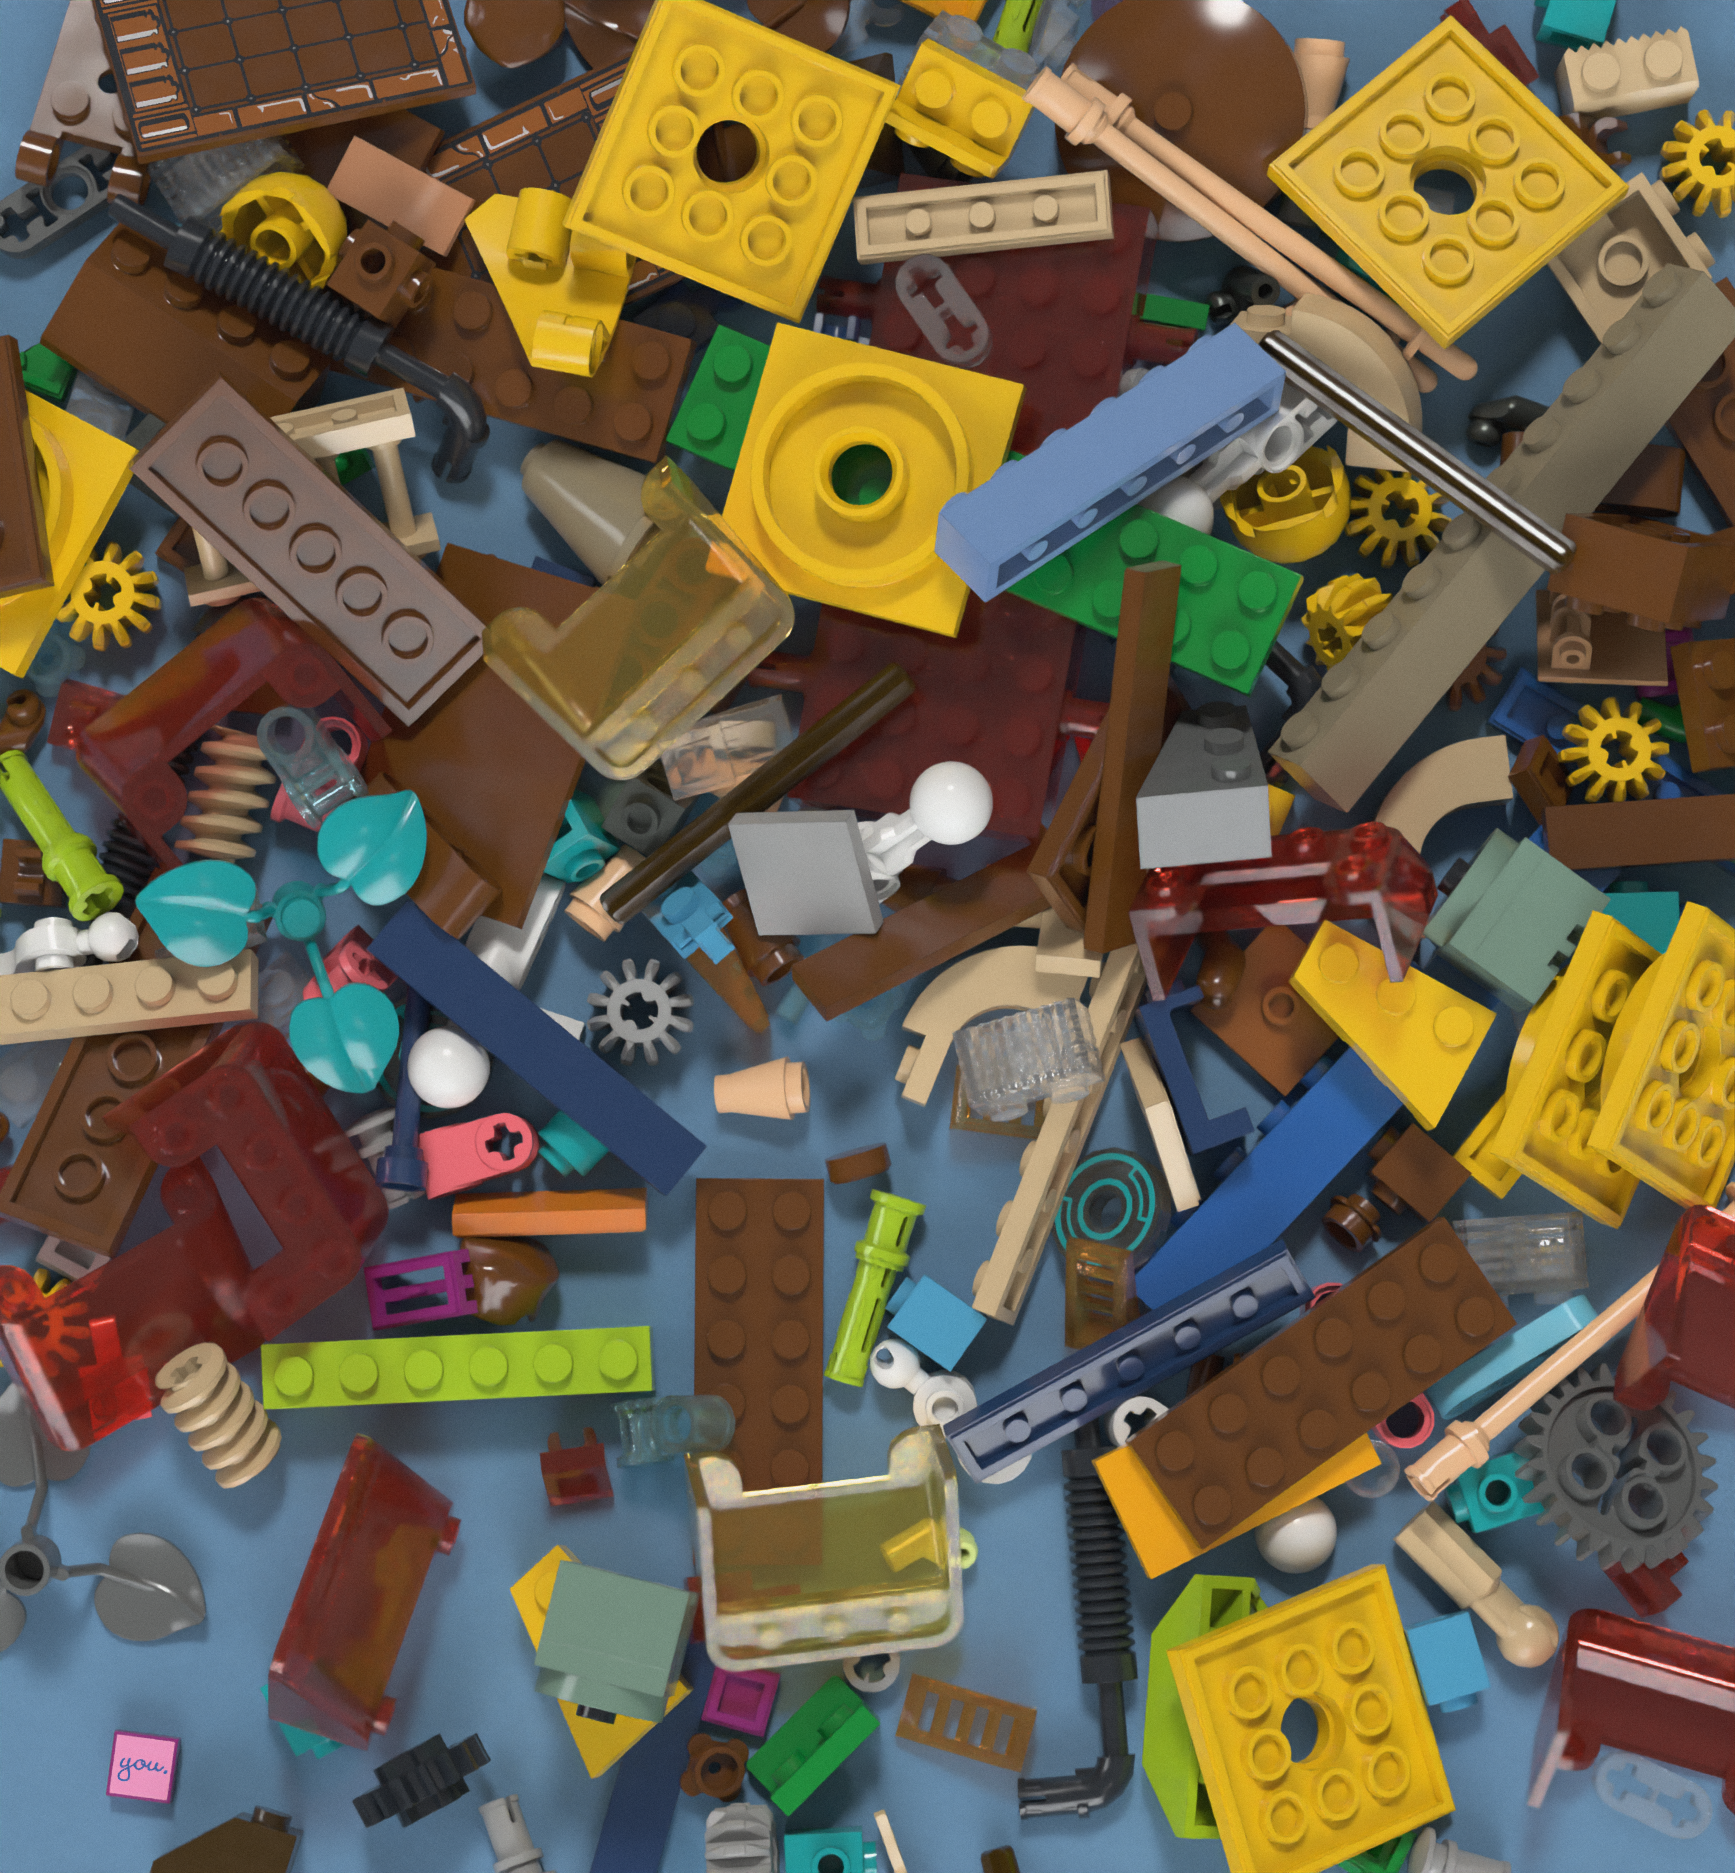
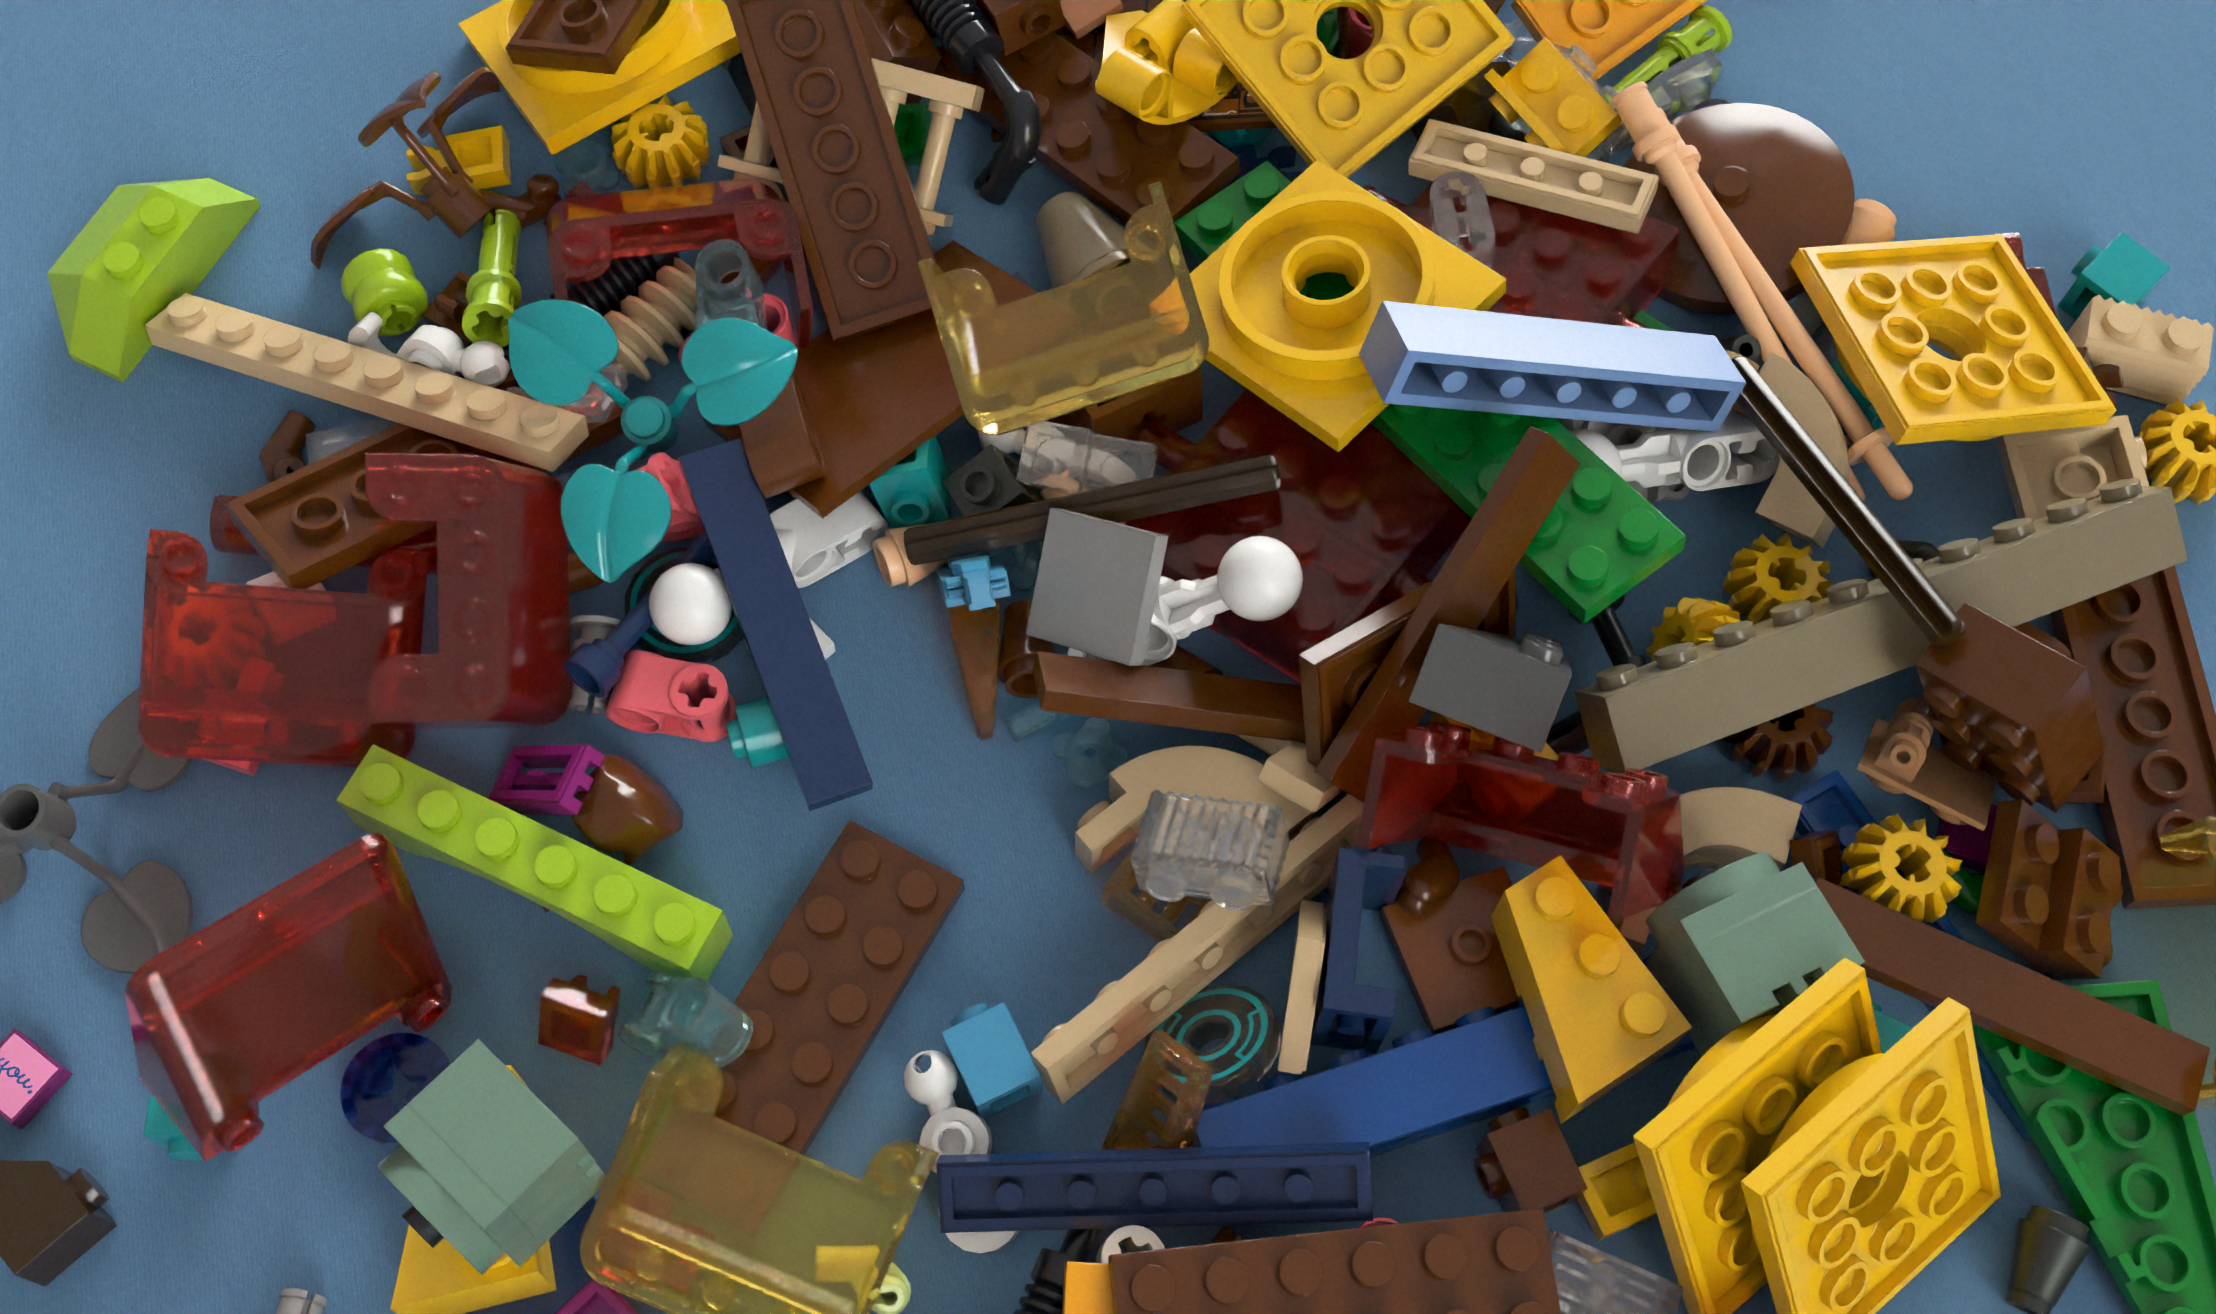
camera: 25 degrees right, 20 degrees down
(218, 1413) = (298, 789): tan piece -> none
(421, 1780) = (237, 1222): black gear -> none
(463, 1636) = (372, 1074): none -> clear blue gear
(550, 1212) = (702, 779): orange tile -> none
(653, 995) = (889, 635): light grey gear -> none
(765, 1090) = (959, 778): light nougat cone -> none
(858, 1163) = (1002, 881): reddish brown tile -> none
(880, 1257) = (974, 976): lime pin -> none
(1292, 511) = (1713, 526): yellow cylinder -> none
(1352, 1222) = (1442, 1183): reddish brown plate -> none

